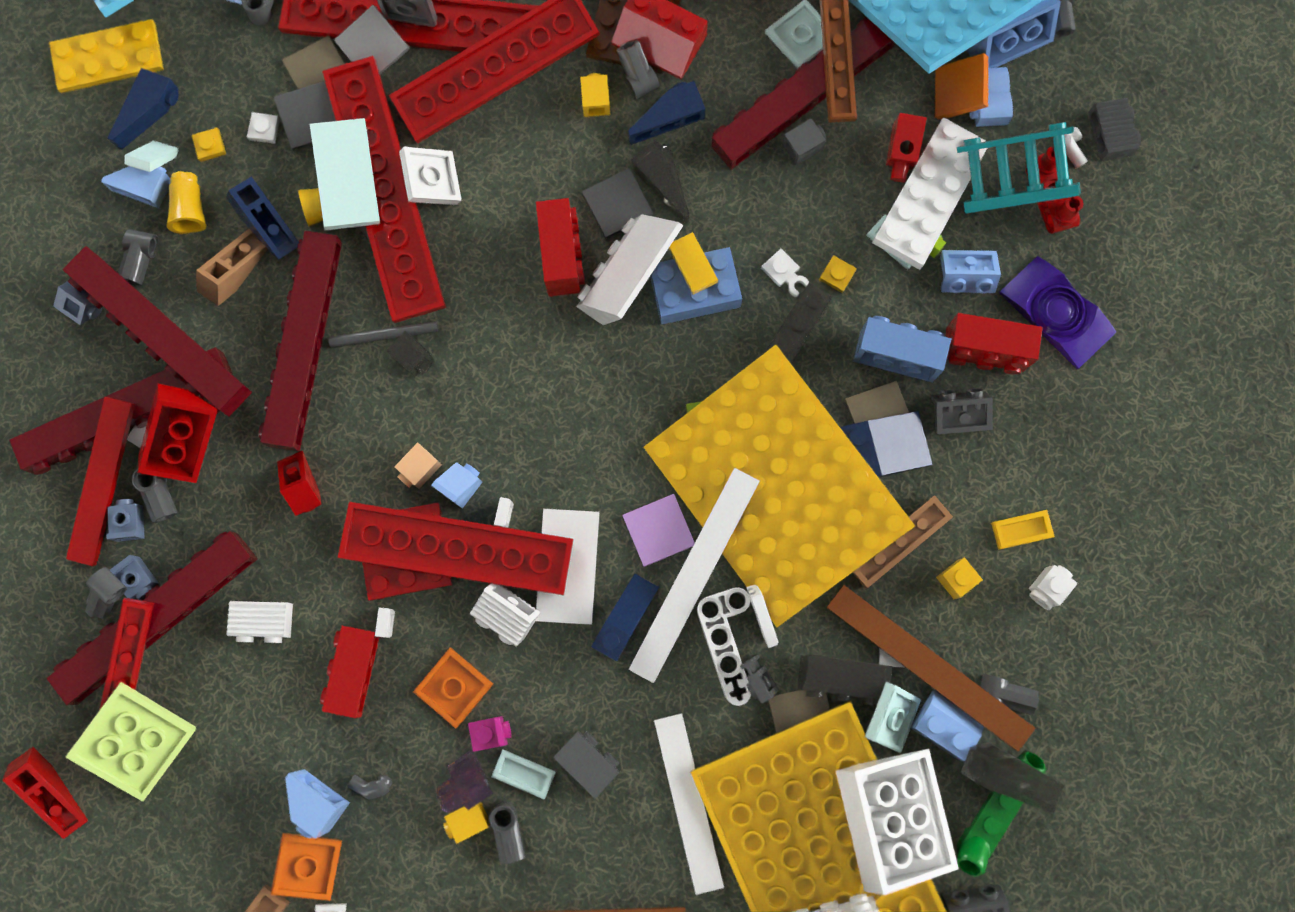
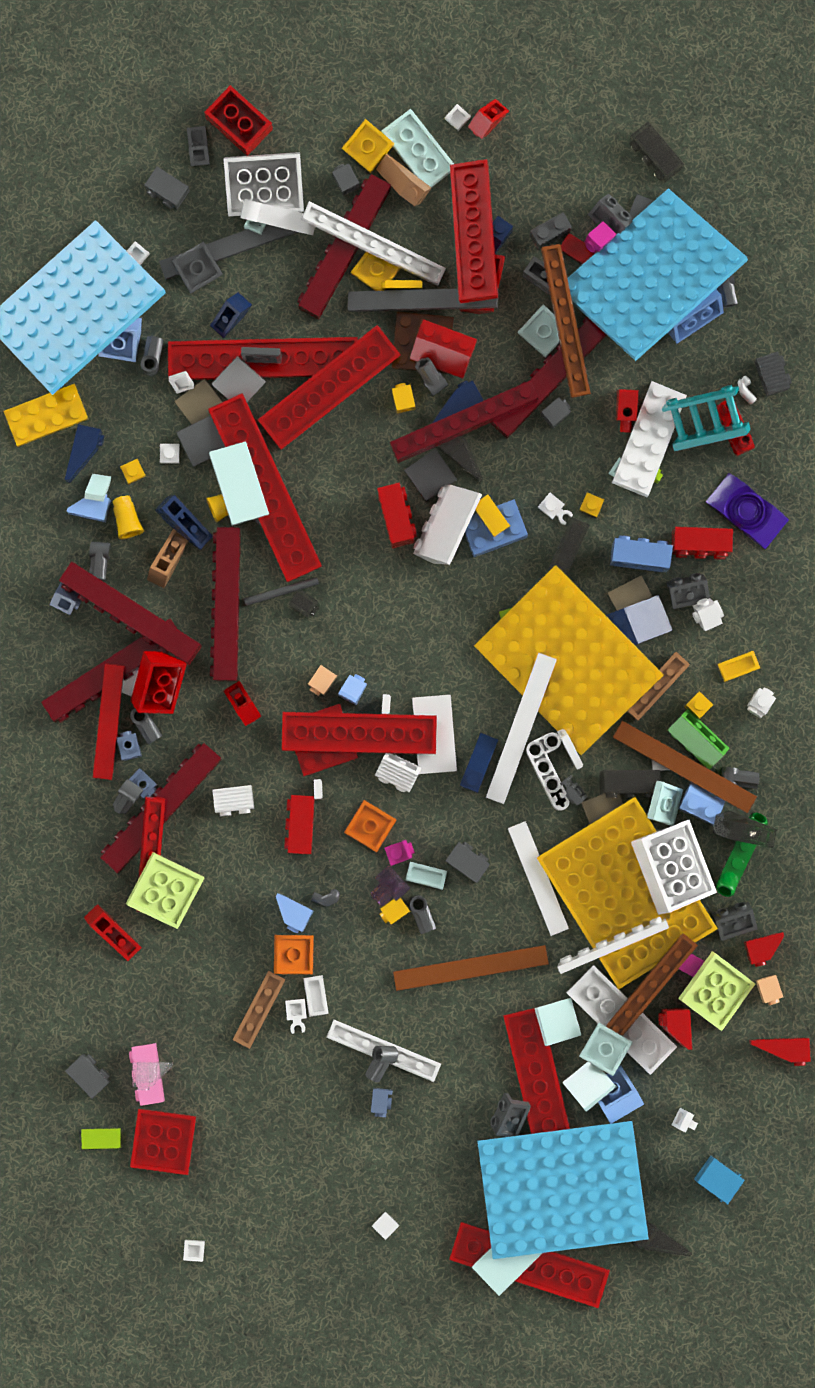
camera: 10 degrees left, 5 degrees up
(295, 34) = (181, 382): none -> white tile
(430, 176) = (297, 475): white plate -> none
(658, 530) = (492, 701): lavender tile -> none
(673, 129) = (464, 421): none -> dark red brick
(953, 629) = (698, 739): none -> bright green brick
(961, 86) = (662, 359): orange tile -> none
(970, 271) = (682, 490): light blue bracket -> none
(987, 447) = (707, 613): none -> white brick
(999, 100) = (683, 361): light blue brick -> none

